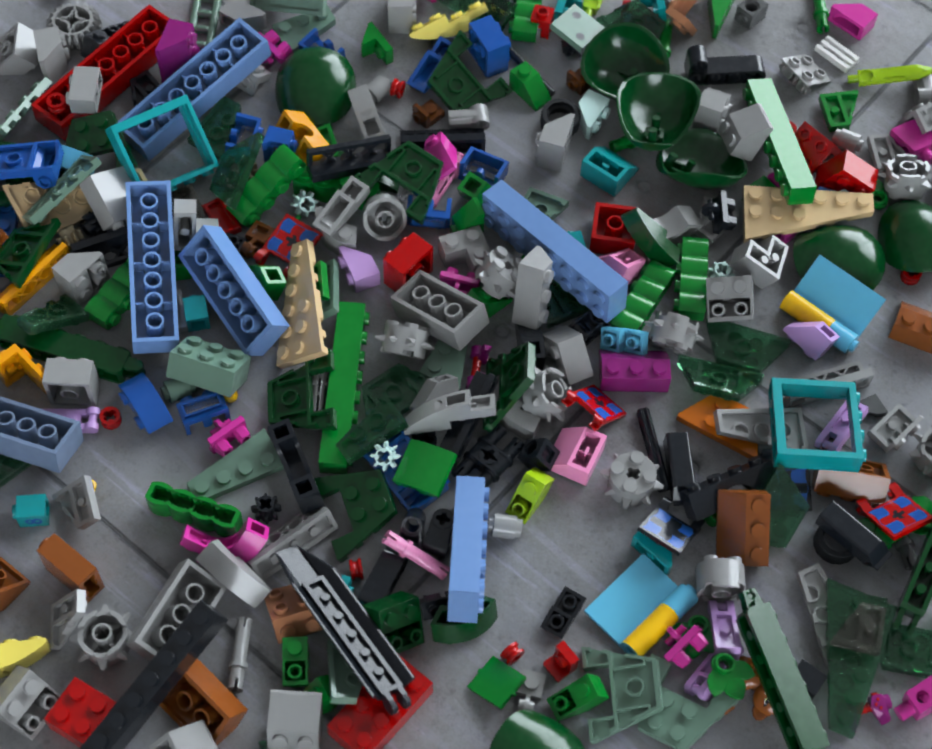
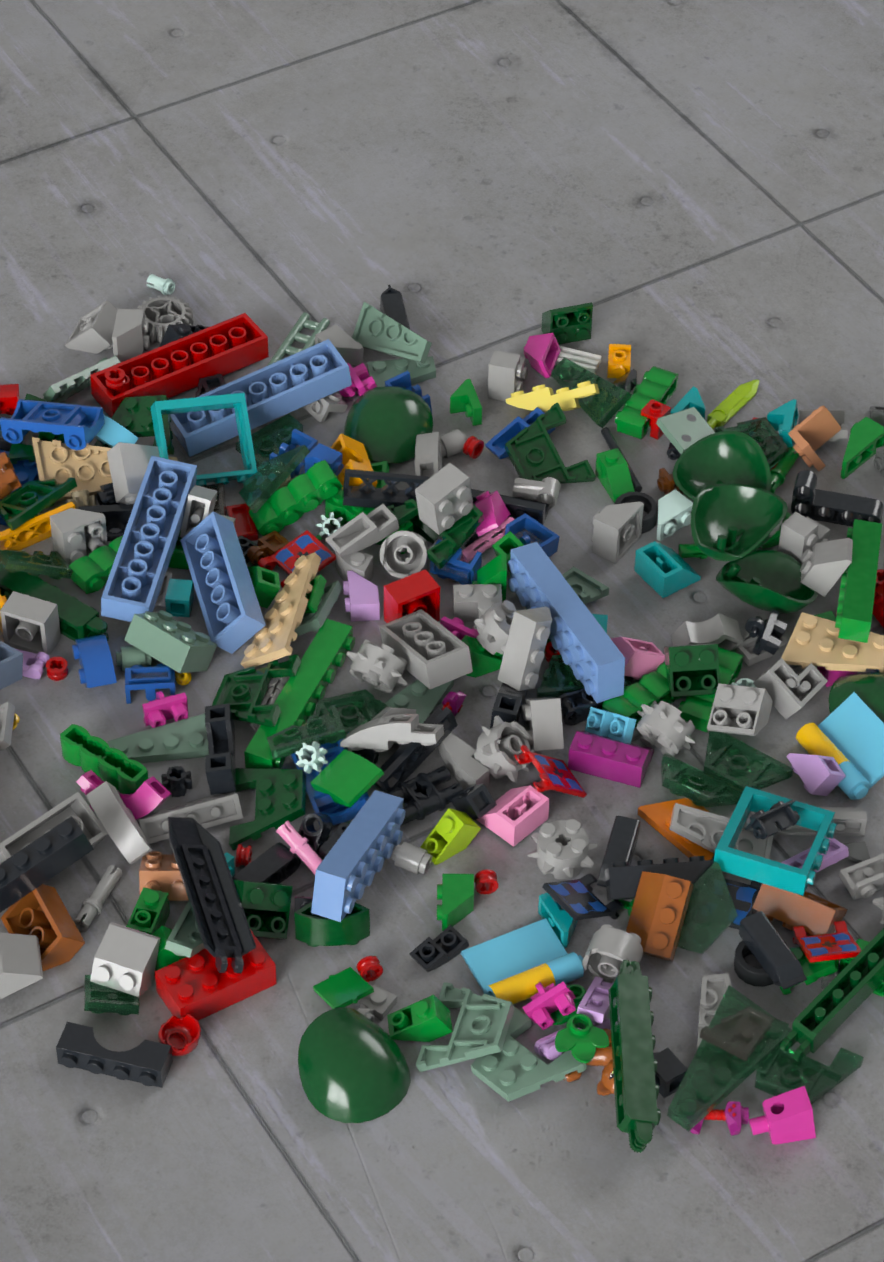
camera: 20 degrees right, 15 degrees down
(66, 183) = (94, 450): sand green wing -> none
(84, 90) = (147, 371): light grey brick -> none
(175, 47) = (253, 351): magenta slope -> none
(409, 159) = (444, 498): none -> light grey brick
(427, 114) = (495, 478): reddish brown bracket -> none
(489, 46) = (585, 427): blue brick -> none
(516, 376) = (468, 721): dark green wing -> none
(559, 555) = (456, 898): none -> green slope
(562, 662) = (418, 987): red bracket -> none
(578, 531) = (486, 881): none -> red bush
(609, 230) = (646, 619): red brick -> none
(651, 237) = (671, 624): dark green slope -> none
(652, 446) = (599, 830): black axle -> none
(677, 268) = (692, 669): none -> dark green slope
(807, 415) = (764, 822): none -> black hinge

